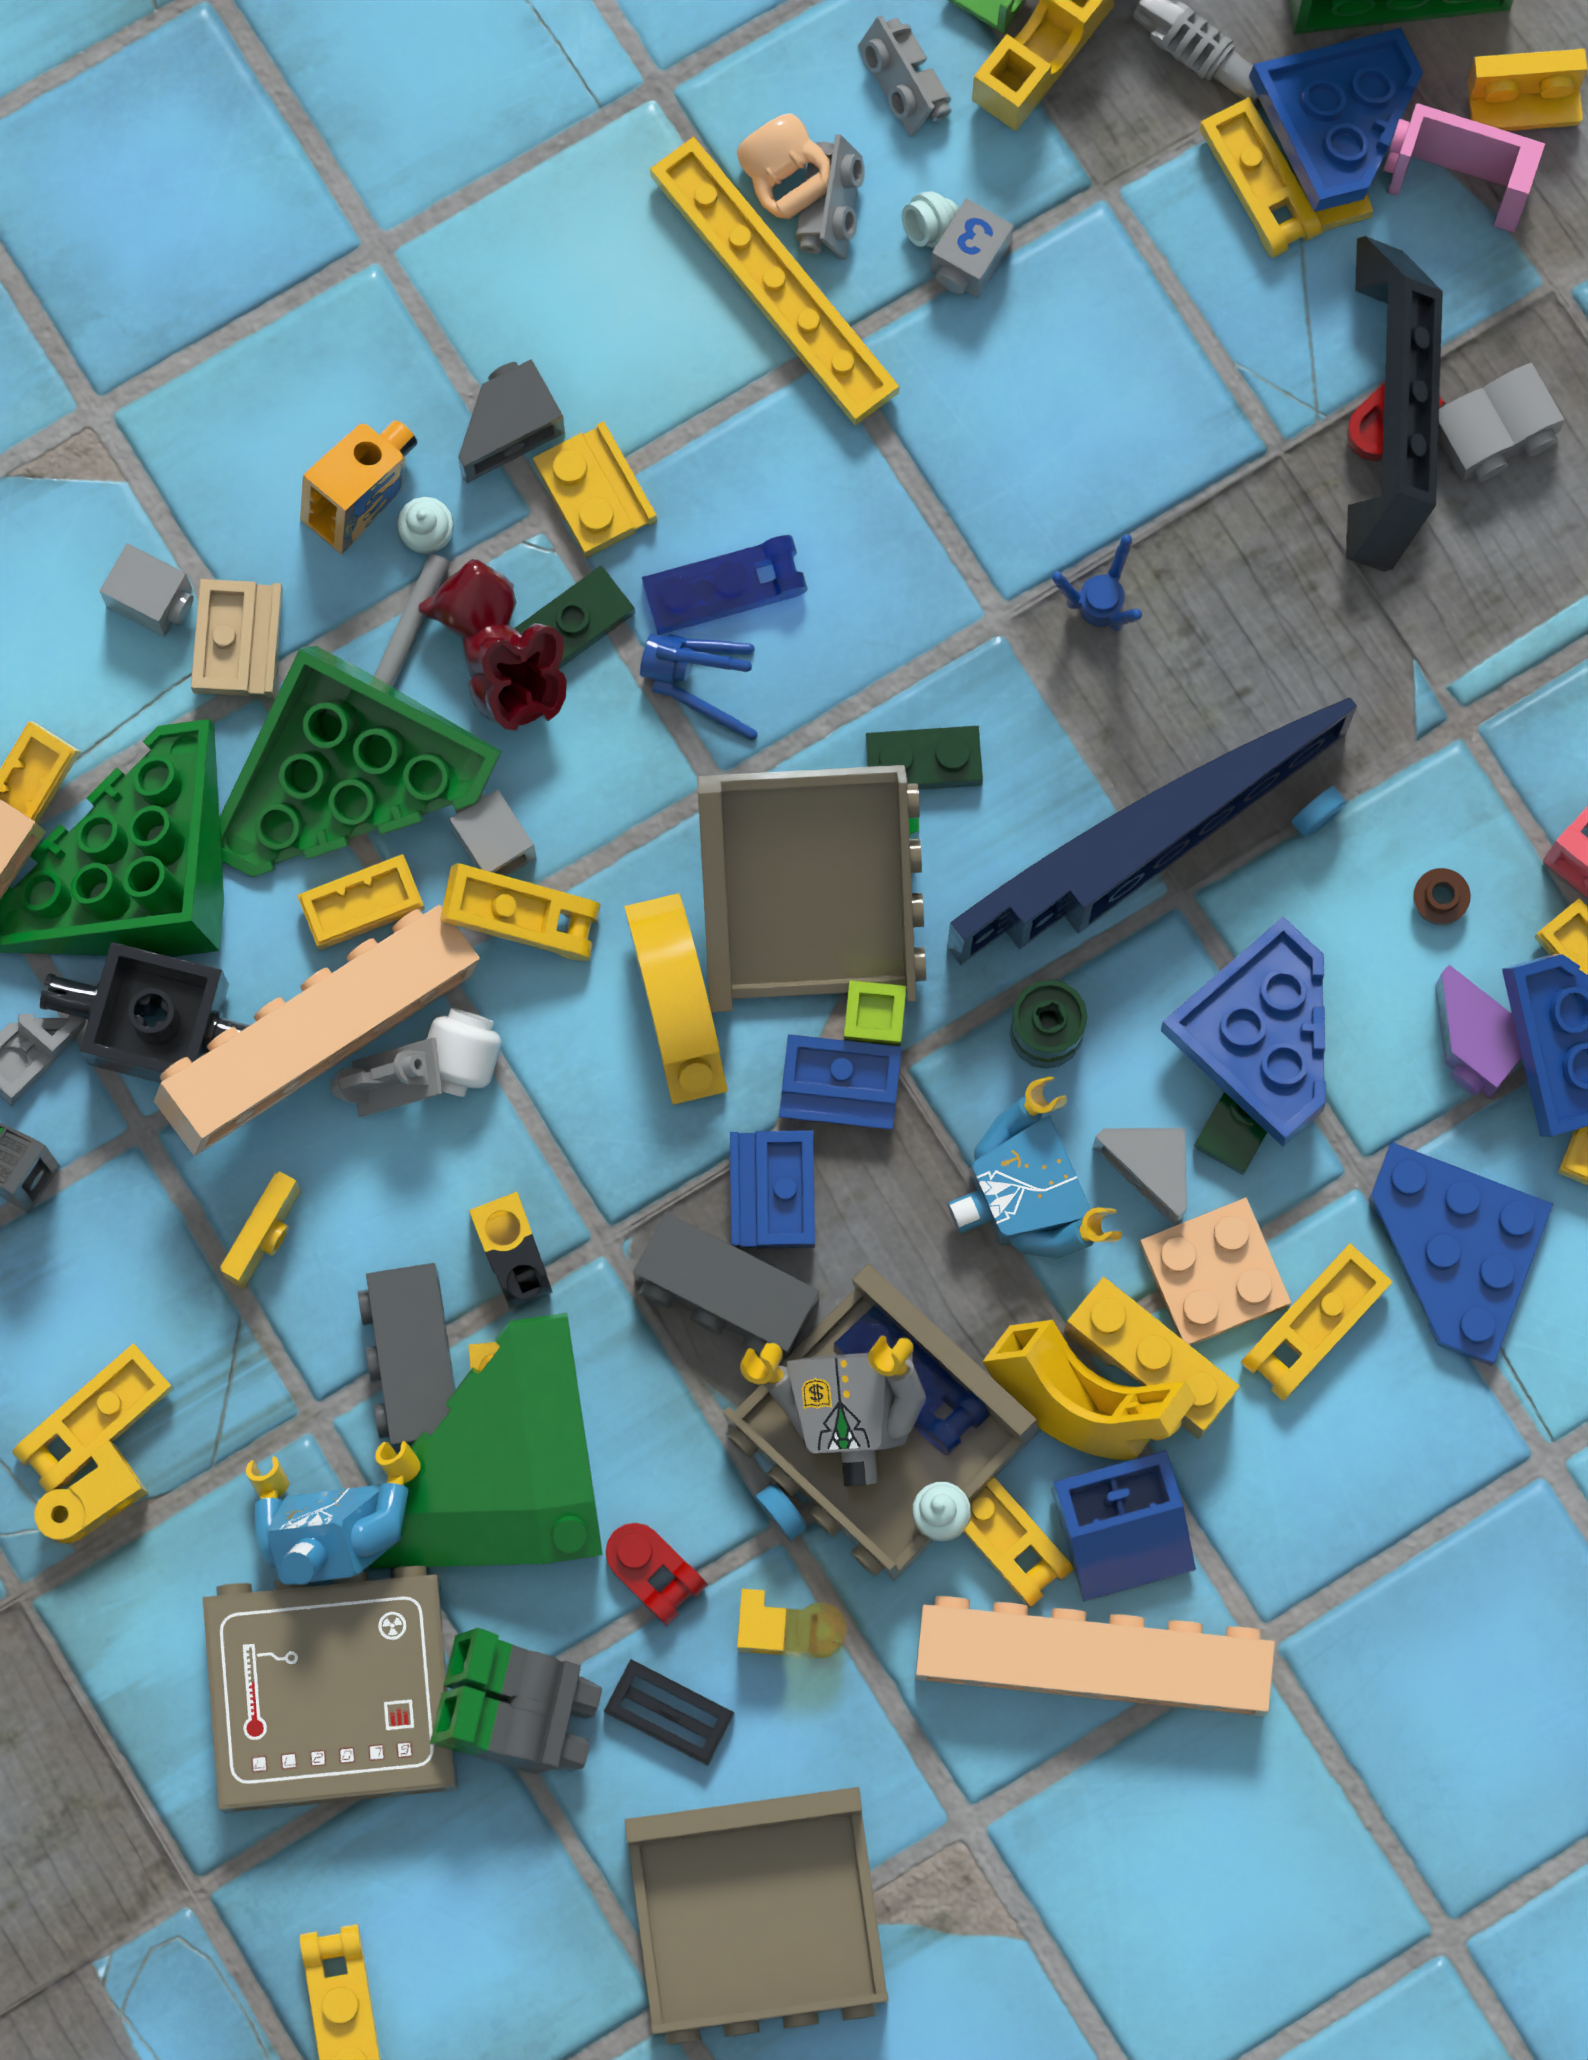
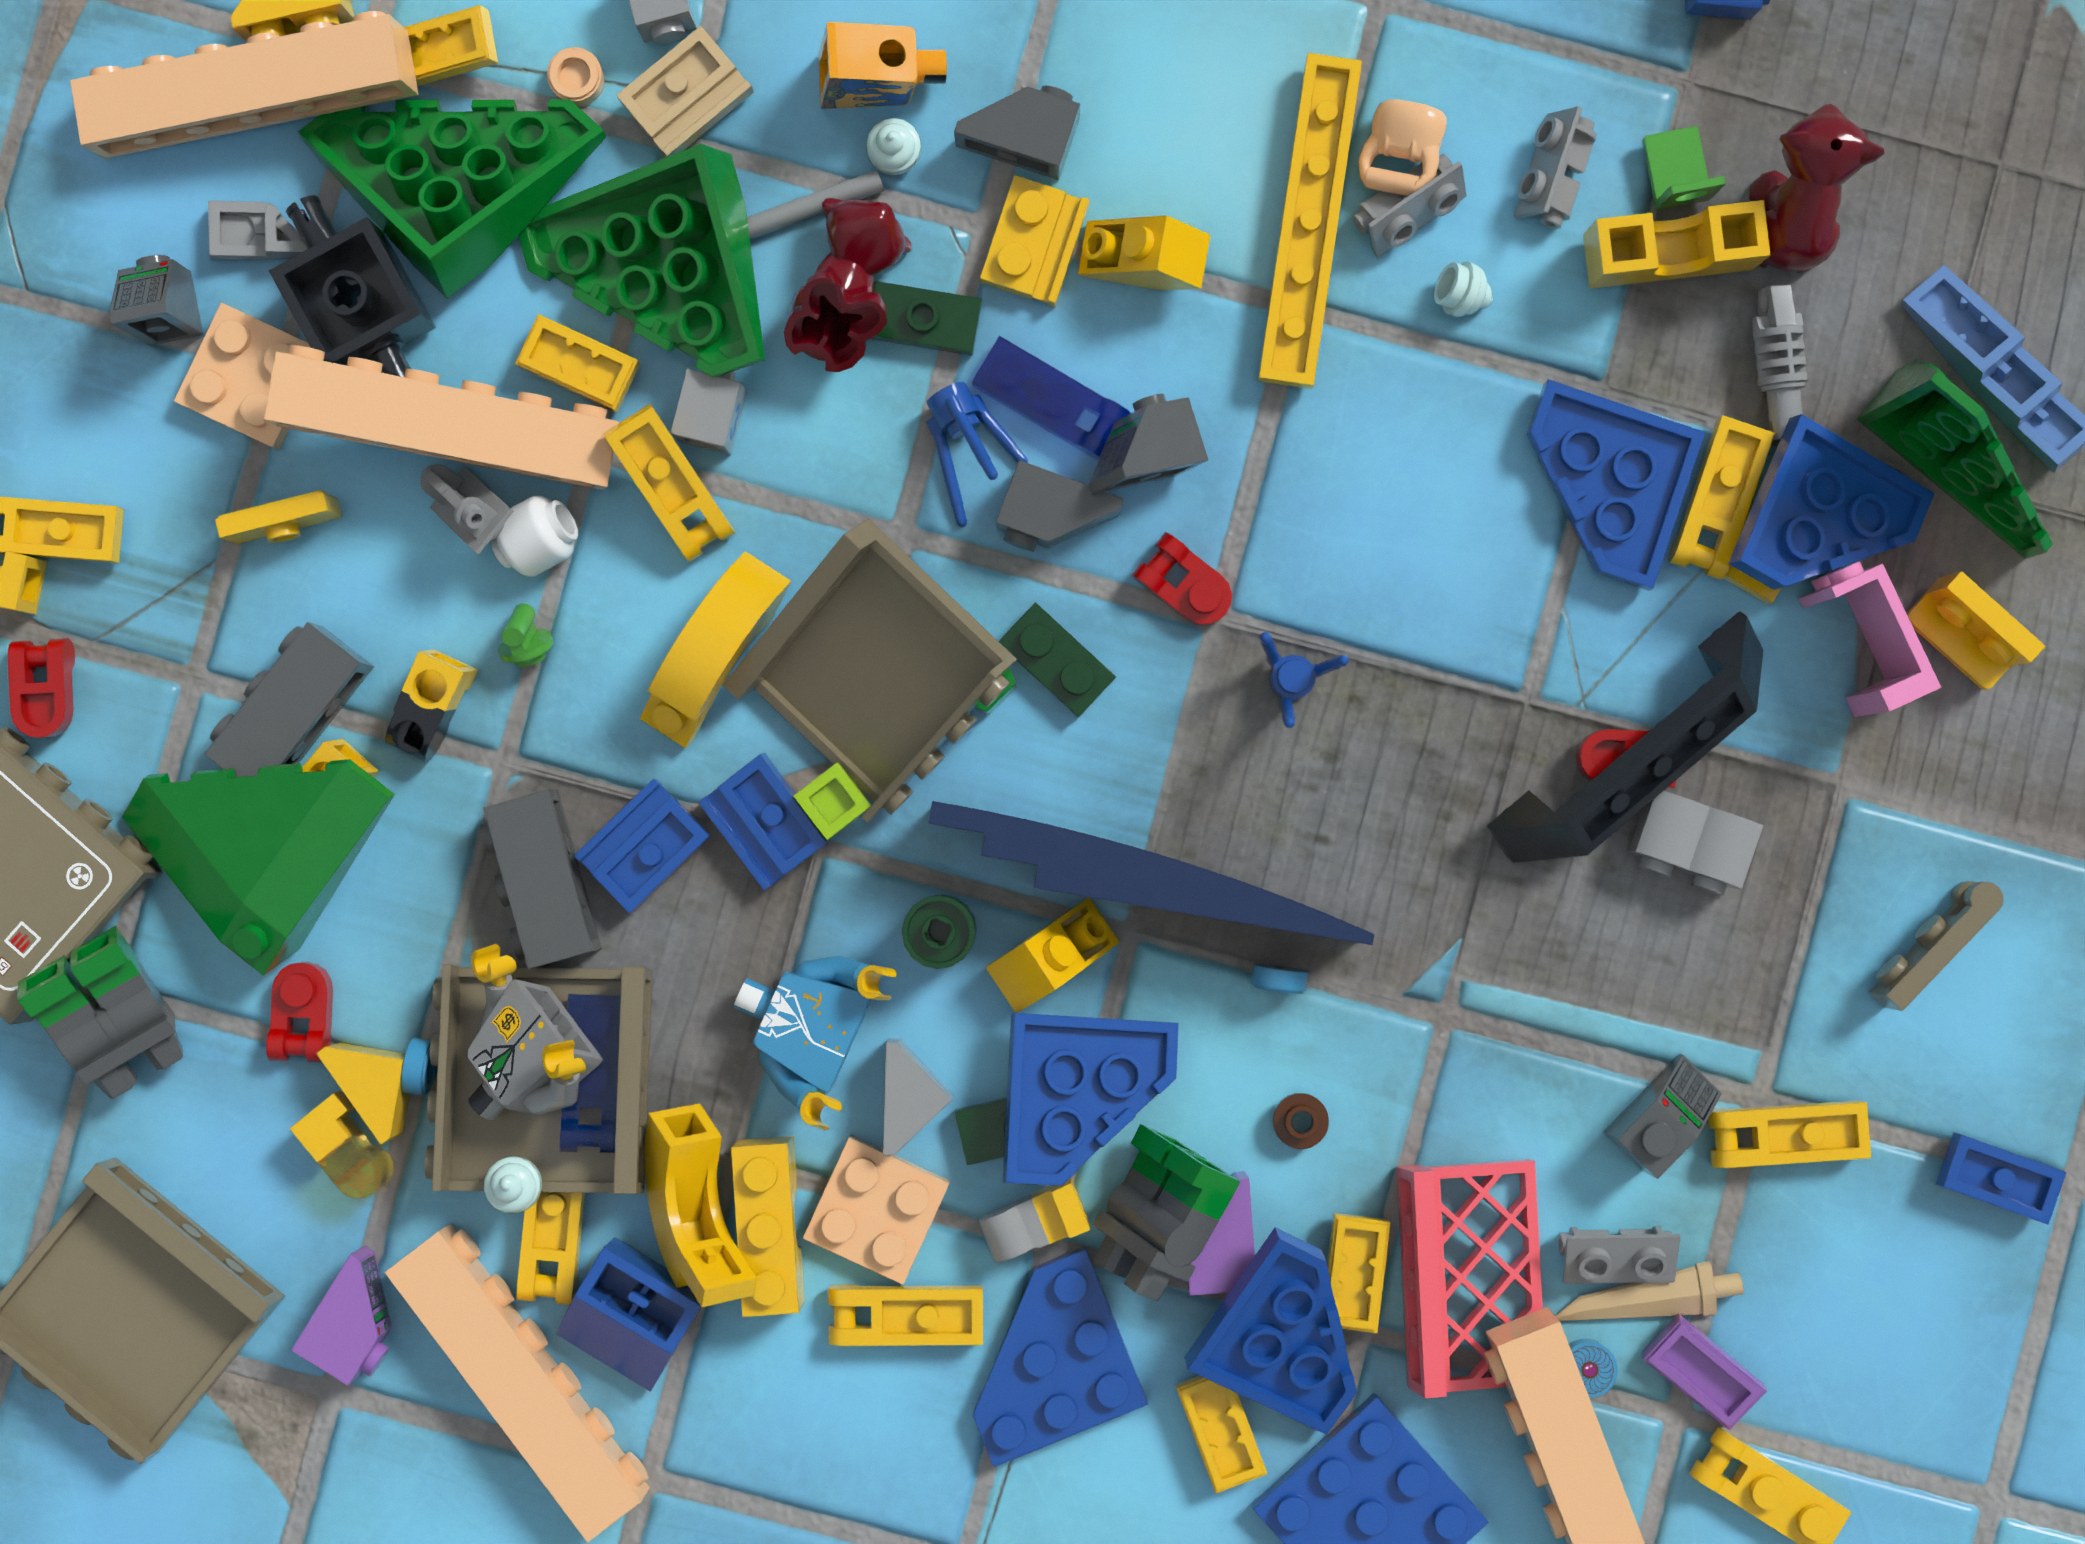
camera: 50 degrees right, 10 degrees up
(127, 1159) = (234, 374): none -> light nougat plate
(142, 707) = (576, 76): none -> light nougat tile
(227, 1545) = (41, 707): none -> red plate
(333, 1530) = (99, 769): dark azure torso -> none
(535, 1136) = (522, 641): none -> bright green plate
(682, 417) = (1145, 252): none -> yellow slope
(713, 1735) = (234, 1109): black tile -> none
(761, 1557) = (371, 1084): none -> yellow slope
(806, 655) = (1050, 508): none -> dark grey slope
(831, 539) = (1150, 445): none -> dark grey slope
(928, 1748) = (349, 1322): none -> medium lavender slope
(971, 249) = (1466, 340): light grey brick -> none
(976, 611) = (1202, 594): none -> red plate
(1144, 961) = (1052, 955): none -> yellow slope
(1173, 237) = (1615, 477): none -> blue plate
(1335, 1156) = (1034, 1221): none -> leg
(1415, 1050) = (1161, 1213): none -> dark grey hips

